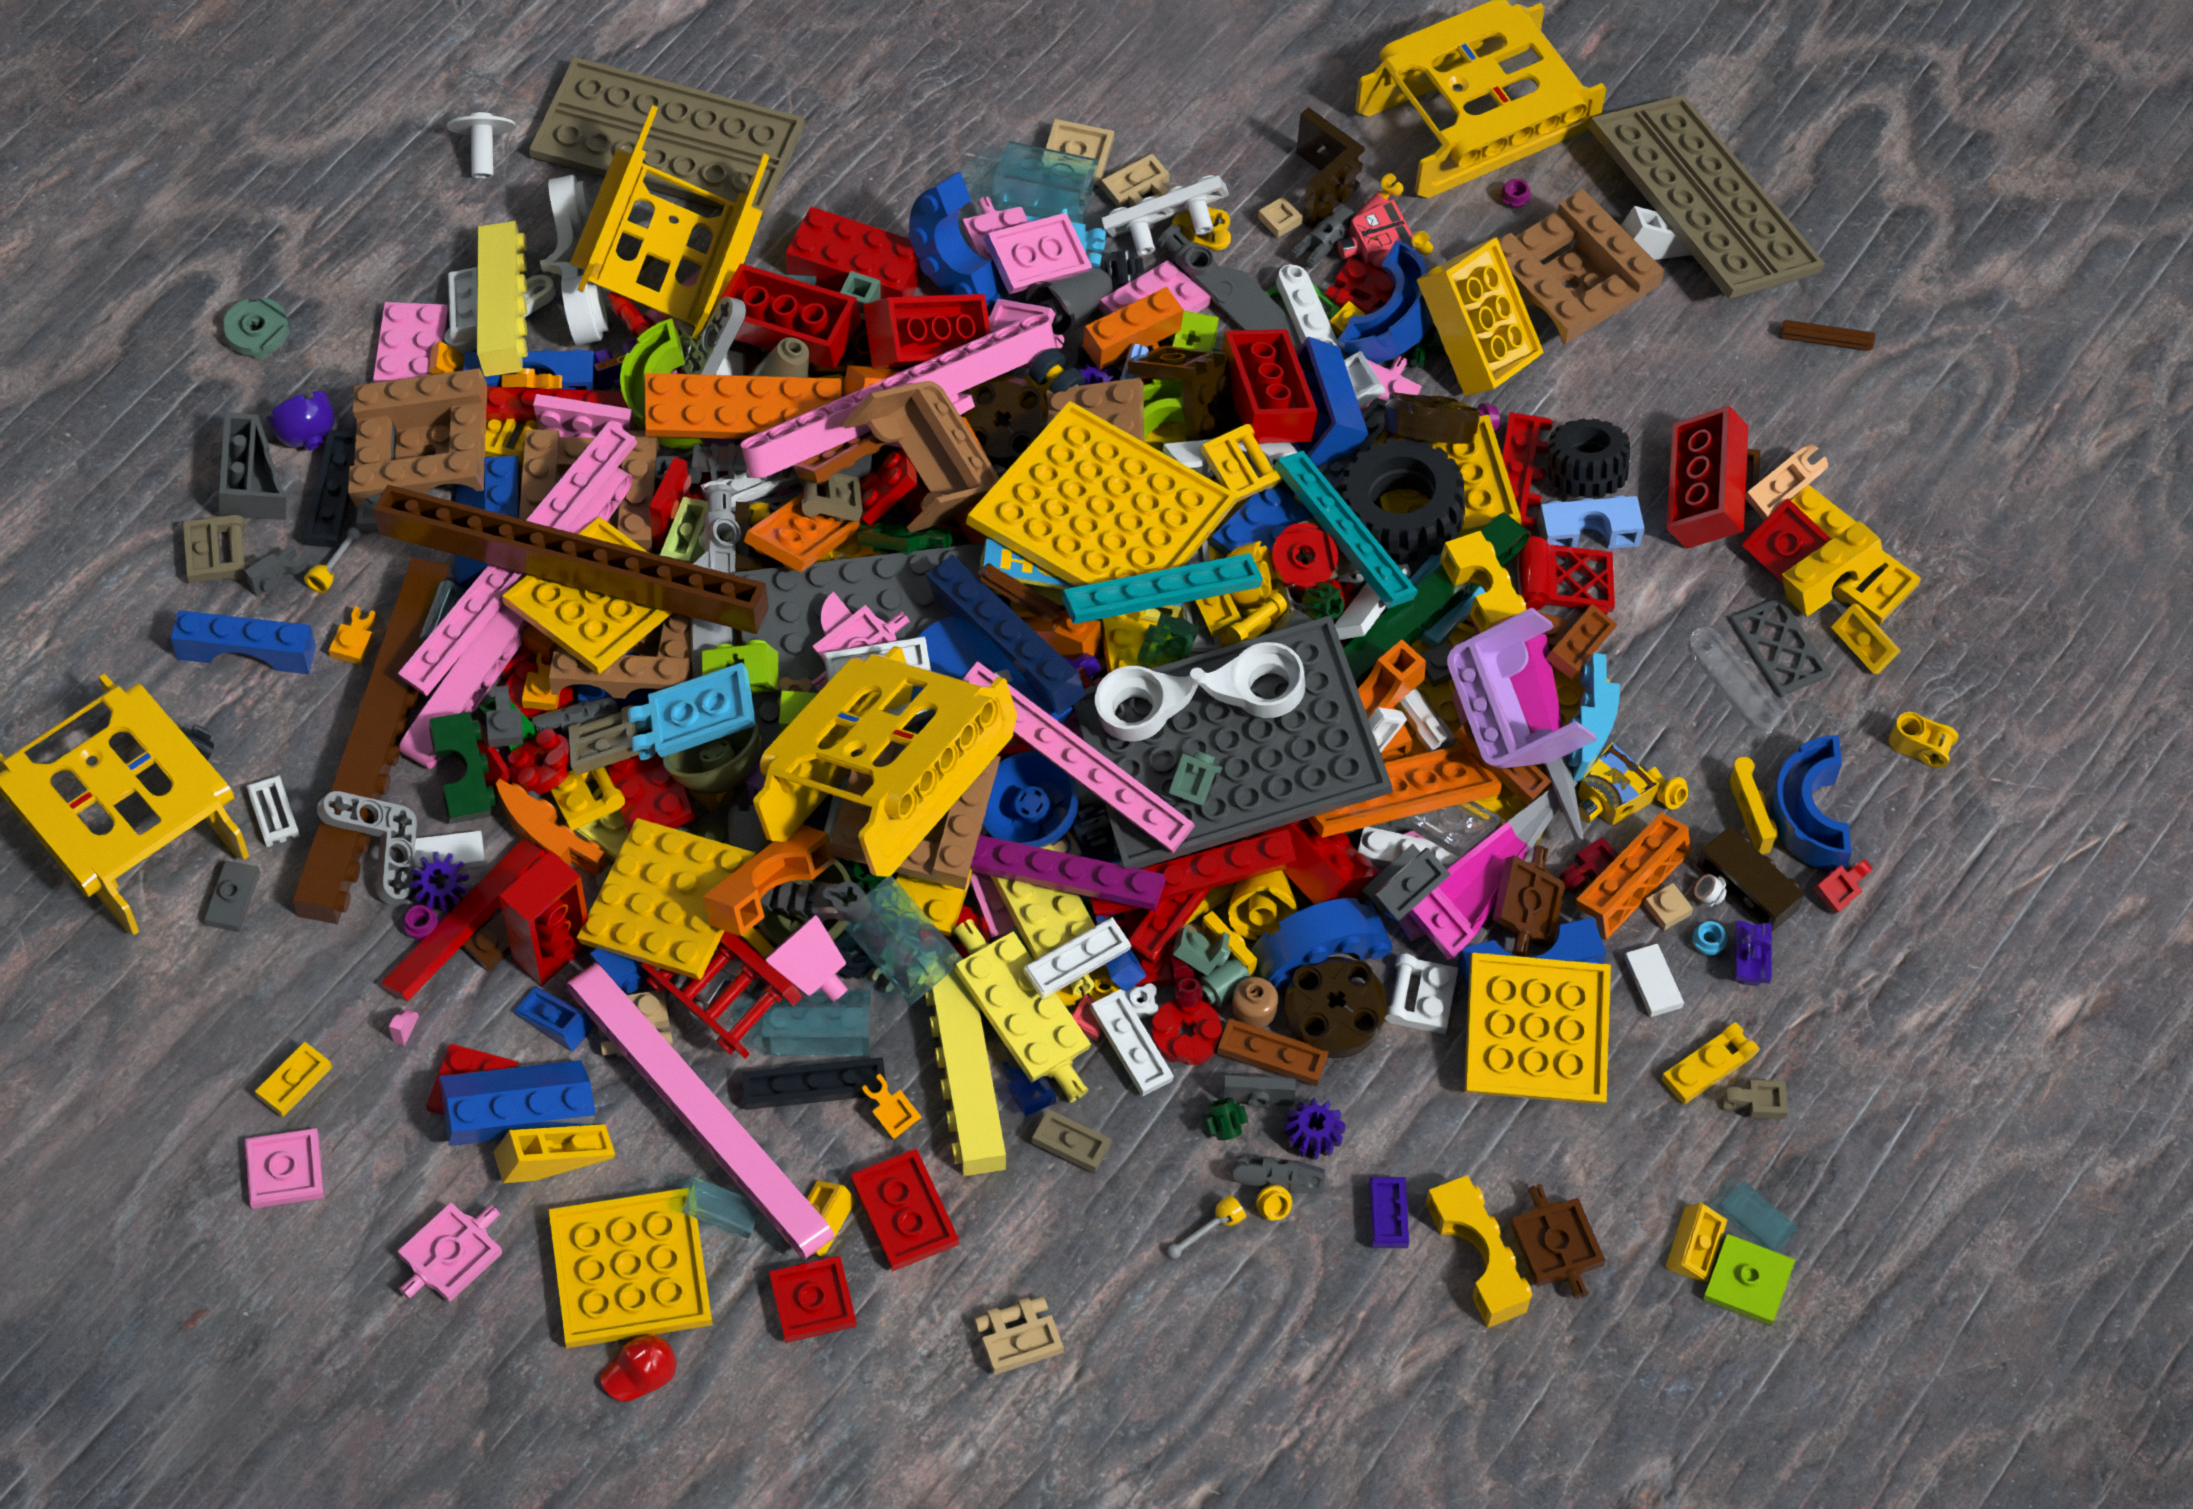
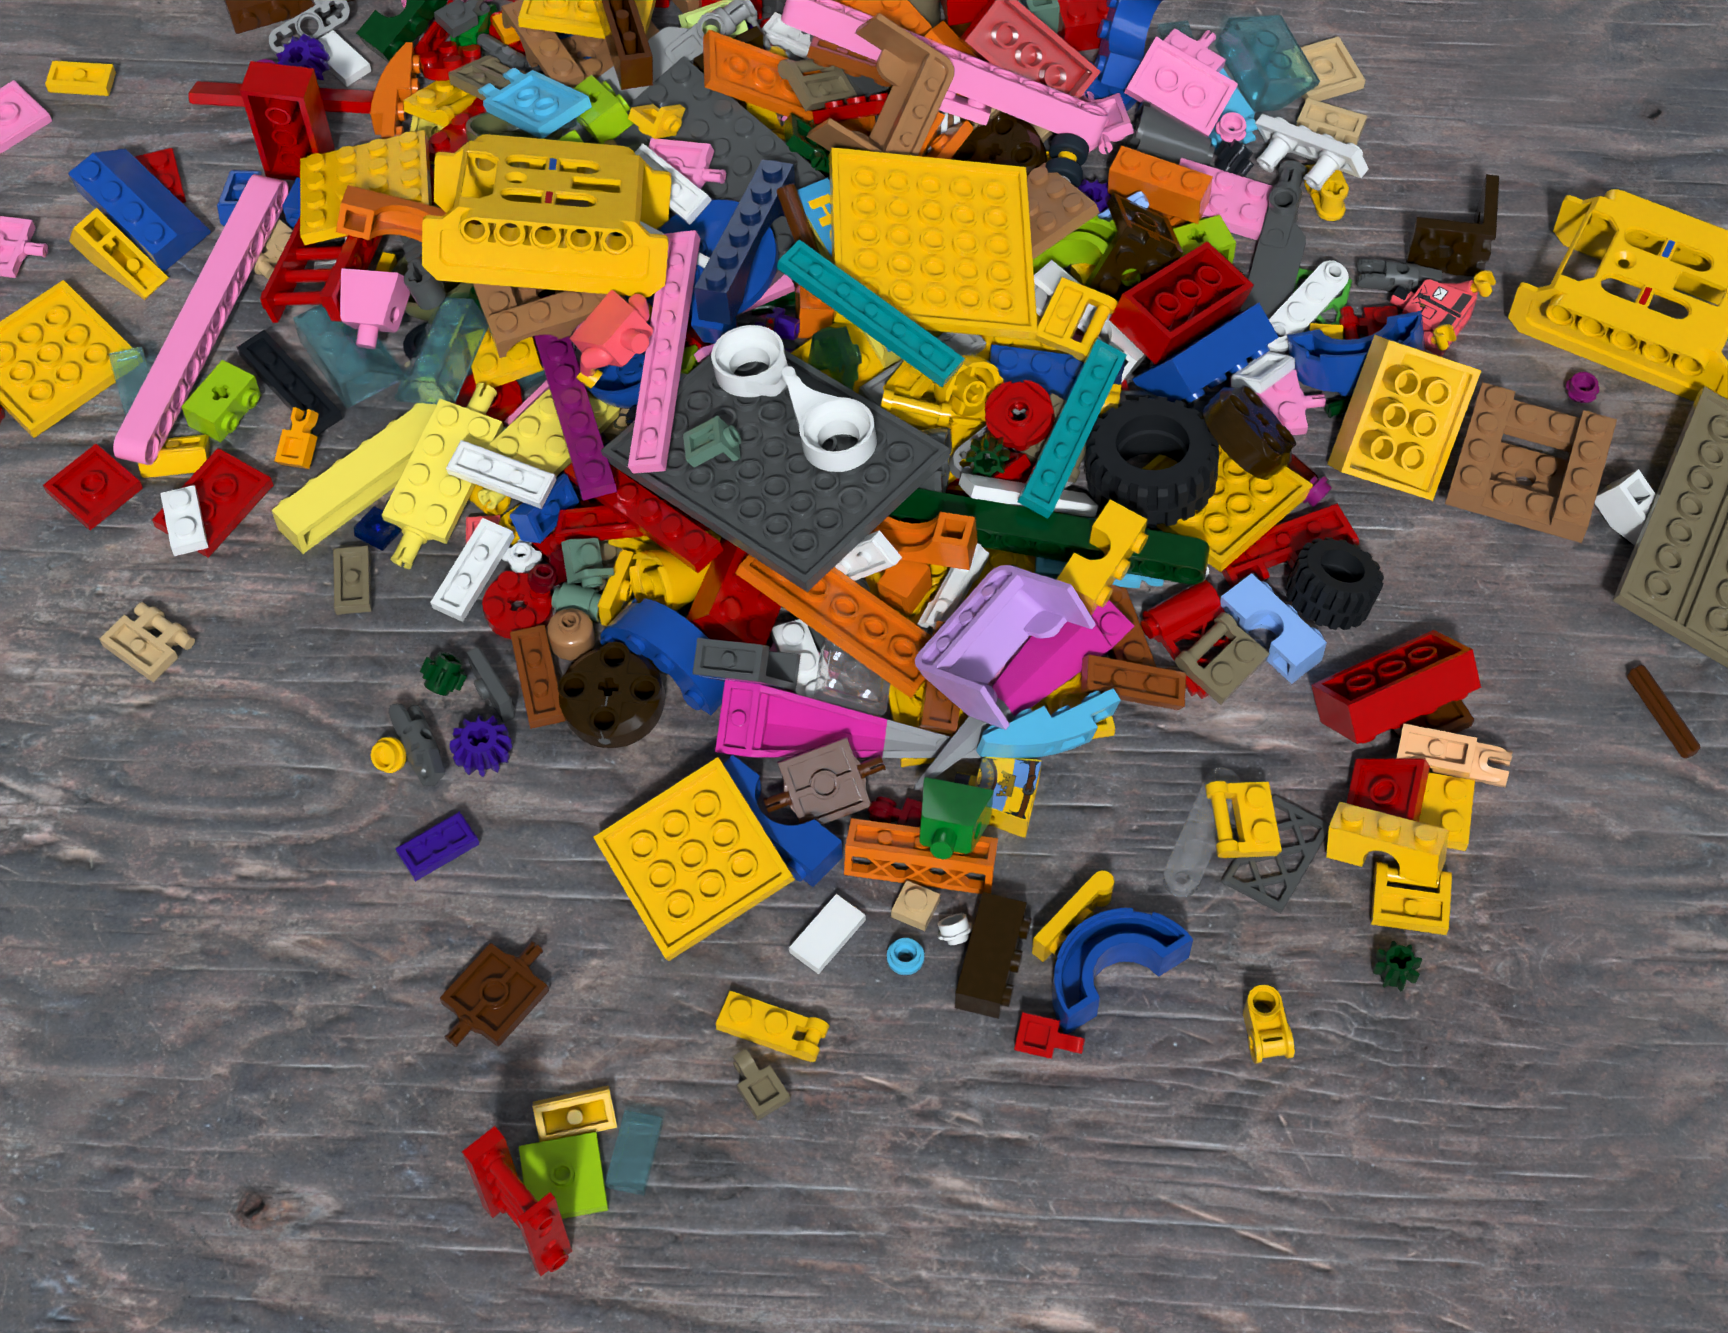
camera: 60 degrees right, 0 degrees up
(402, 1026) = (169, 113): bright pink tile -> none
(783, 1134) = (221, 401): none -> lime brick
(799, 633) = (656, 121): none -> yellow bracket
(833, 613) = (694, 132): bright pink tile -> none
(918, 1237) = (184, 520): none -> white plate
(1033, 784) = (612, 335): none -> coral torso
(1101, 240) = (1231, 121): none -> bright pink plate
(1227, 1212) = (358, 726): hinge -> none
(1280, 217) = (1390, 236): tan plate -> none
(1433, 995) = (672, 768): white plate -> none
(1460, 1212) = (413, 971): yellow arch -> none
(1605, 569) = (1230, 666): none -> dark tan plate
(1629, 828) = (953, 816): none -> green torso
(1670, 793) = (1040, 844): yellow plate -> none
(1749, 644) = (1253, 818): none -> yellow plate
(1753, 953) = (909, 995): dark purple hips -> none
(1786, 1301) = (504, 1192): none -> red fence
(1865, 638) = (1339, 917): yellow plate -> none
(1928, 629) = (1397, 966): none -> dark green gear

